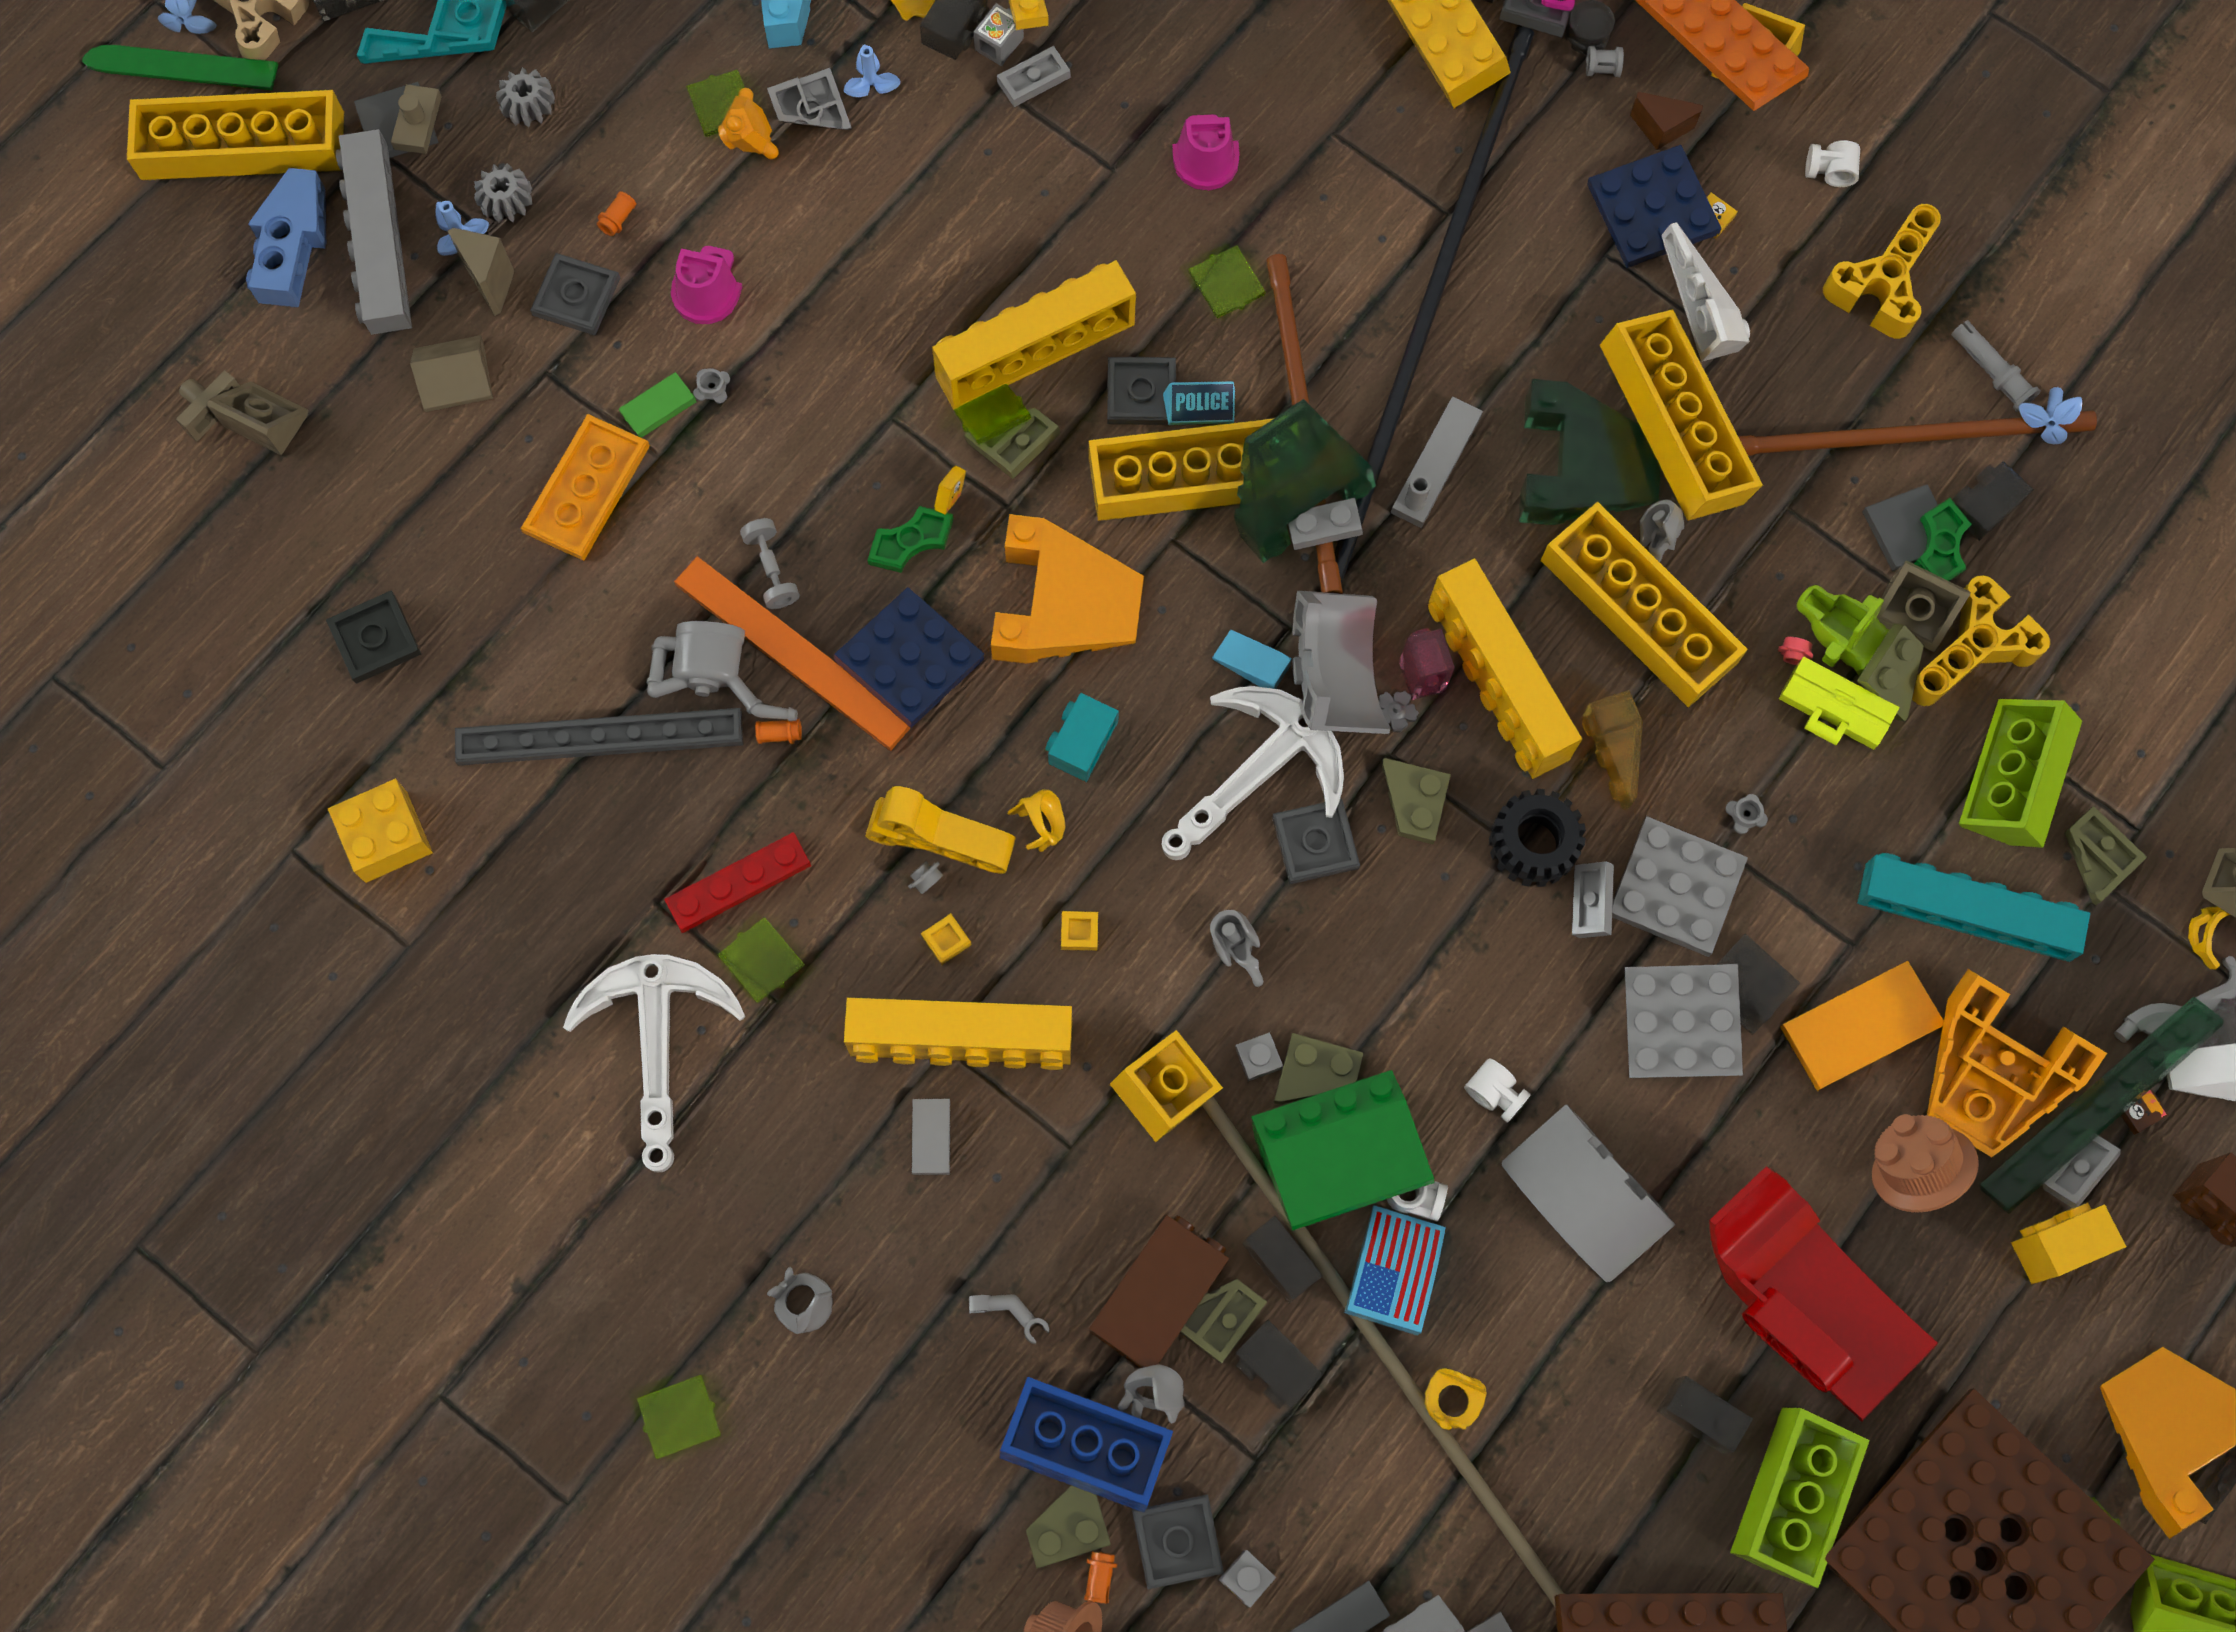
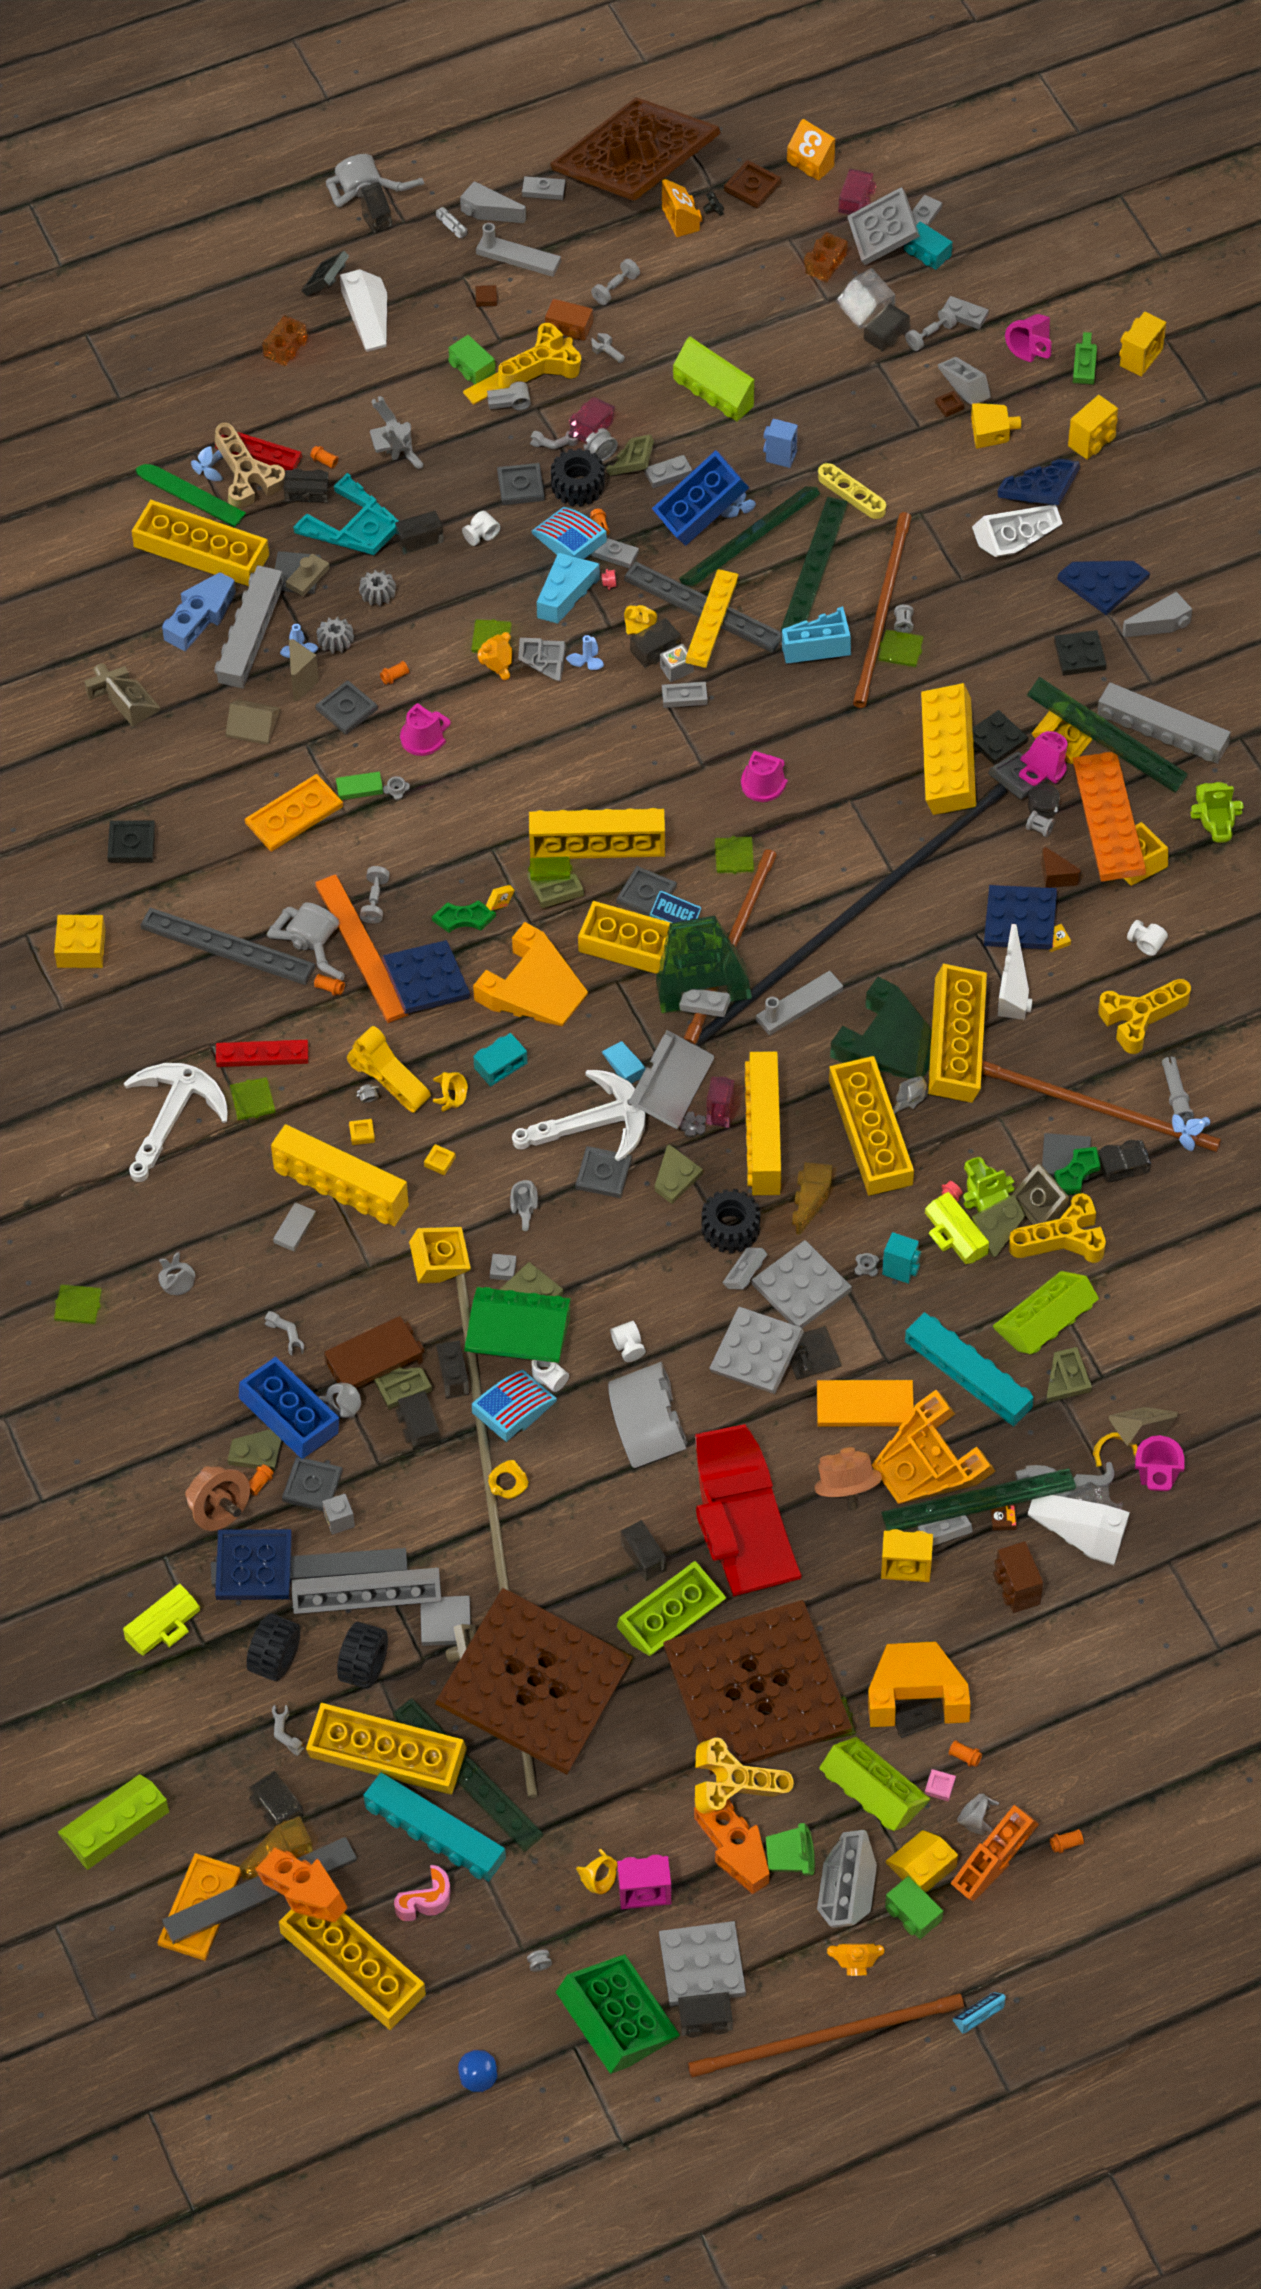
camera: 30 degrees right, 15 degrees down
(1799, 786) = (901, 1258): none -> teal brick

